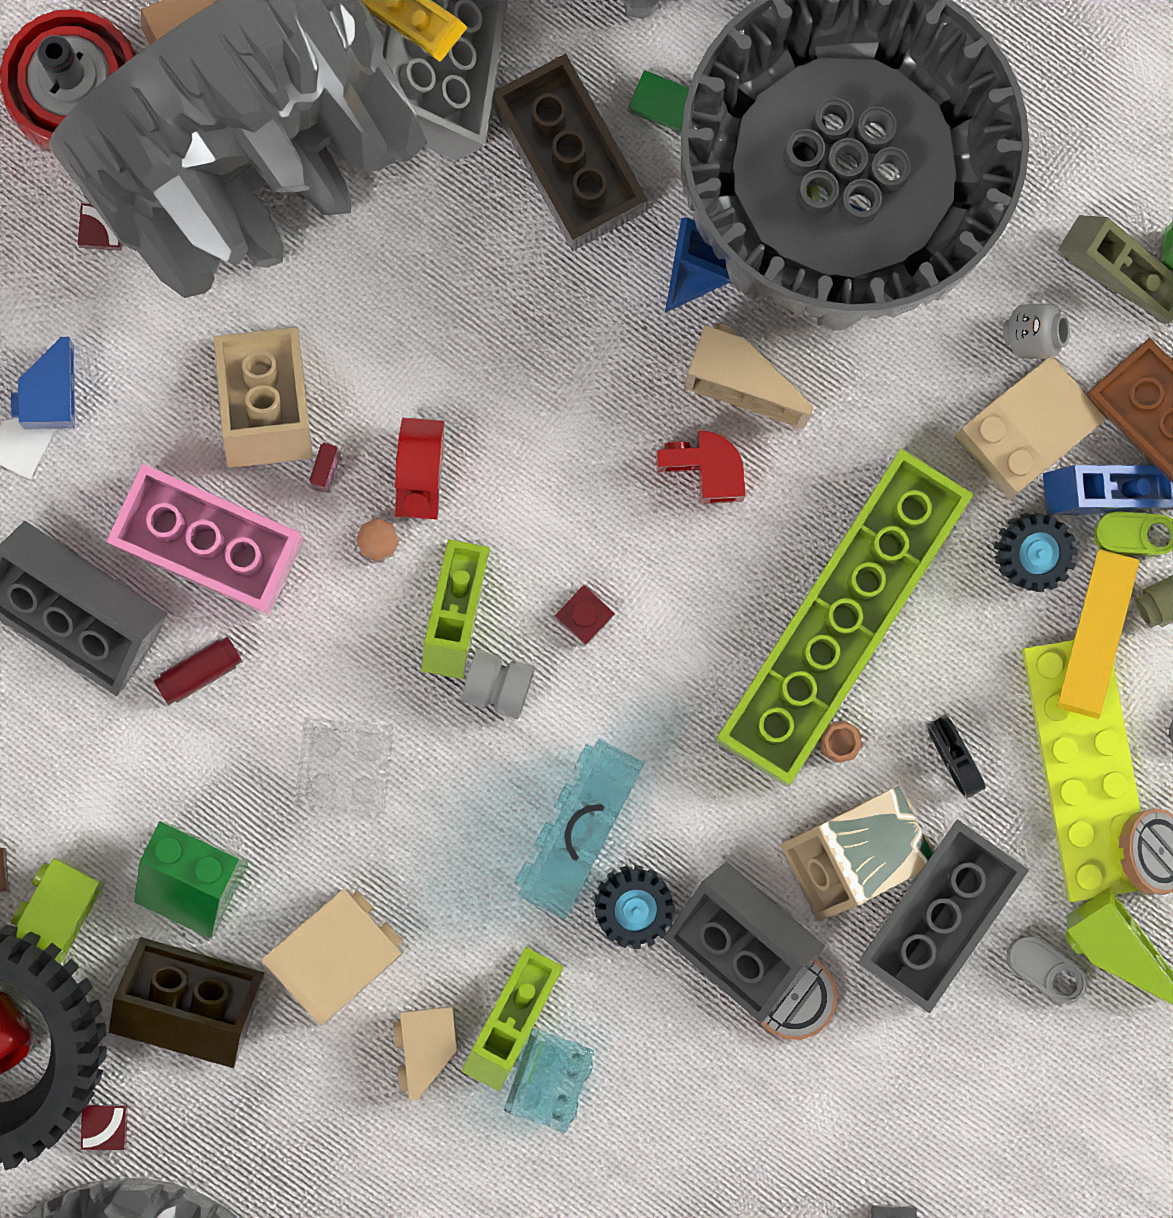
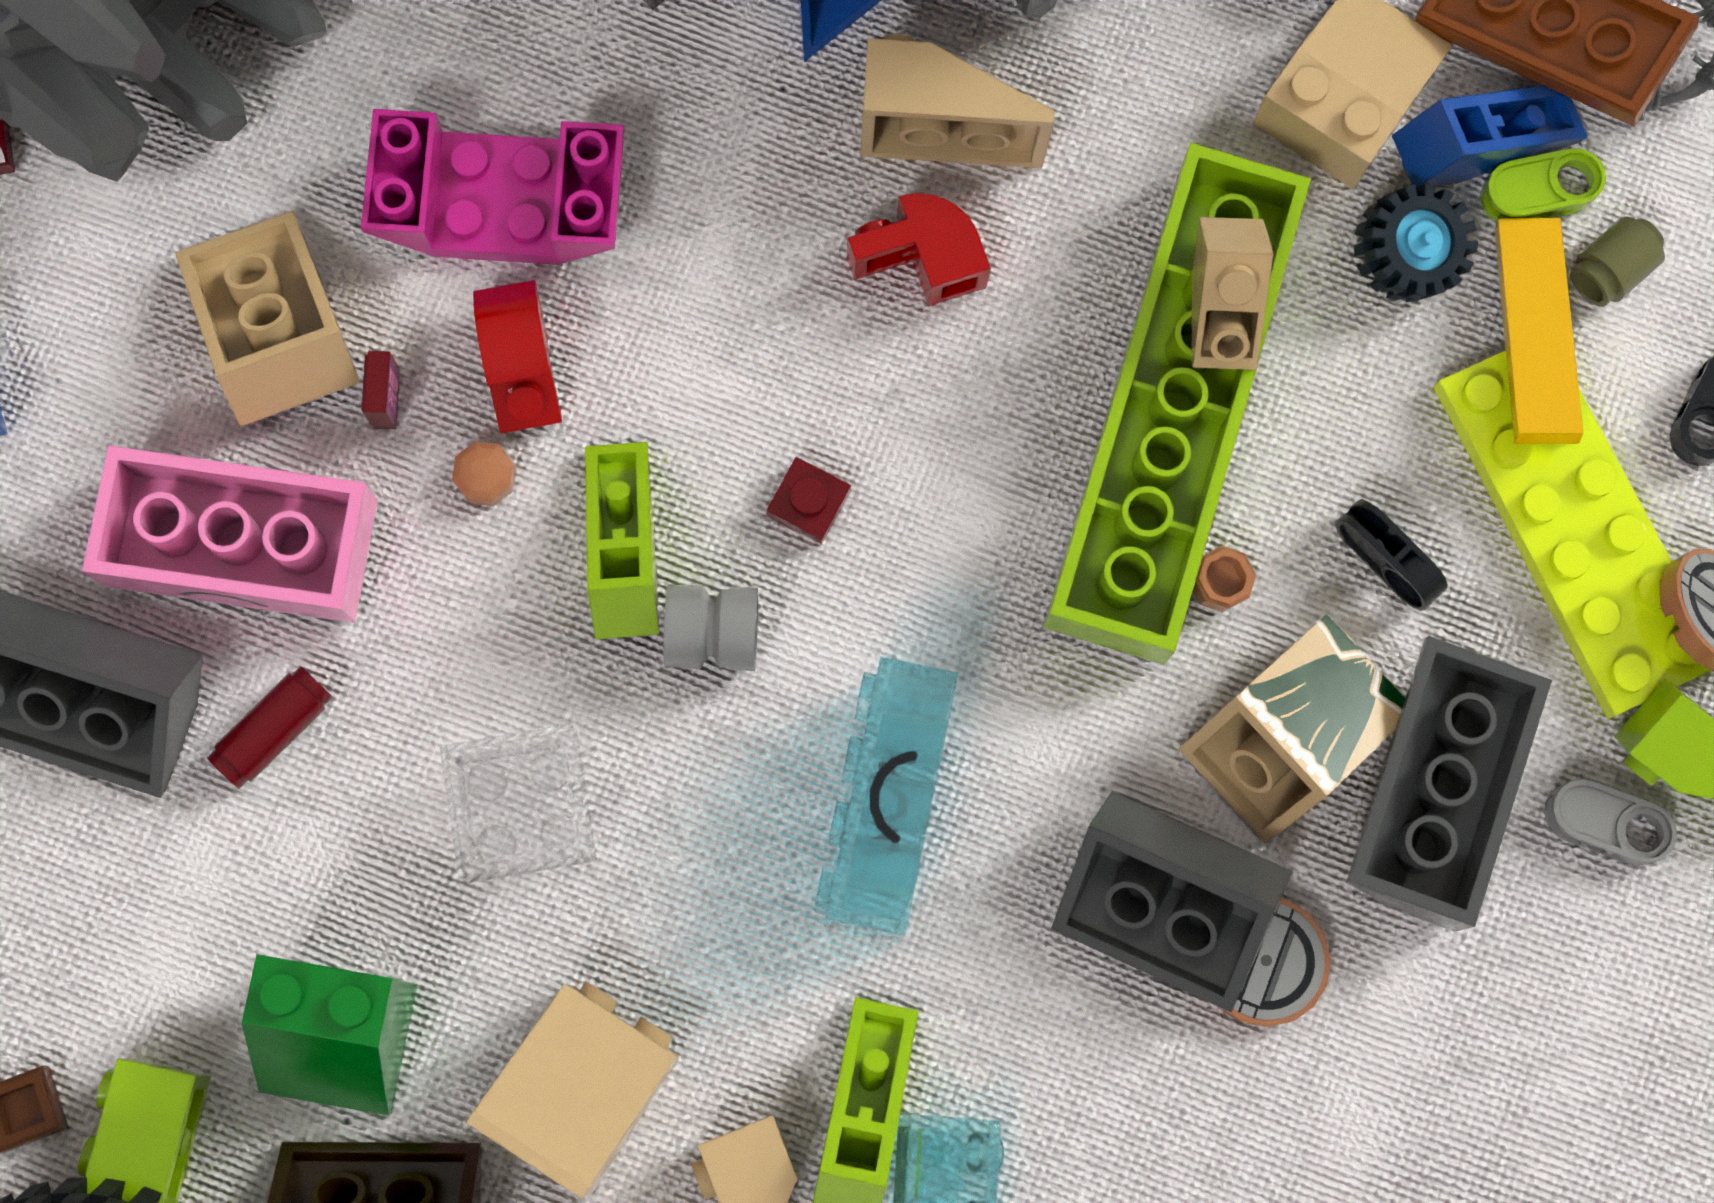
camera: 15 degrees left, 5 degrees down
(433, 351) = (492, 191): none -> dark pink slope
(634, 907) = (997, 894): black wheel -> none
(893, 560) = (1229, 292): none -> tan slope

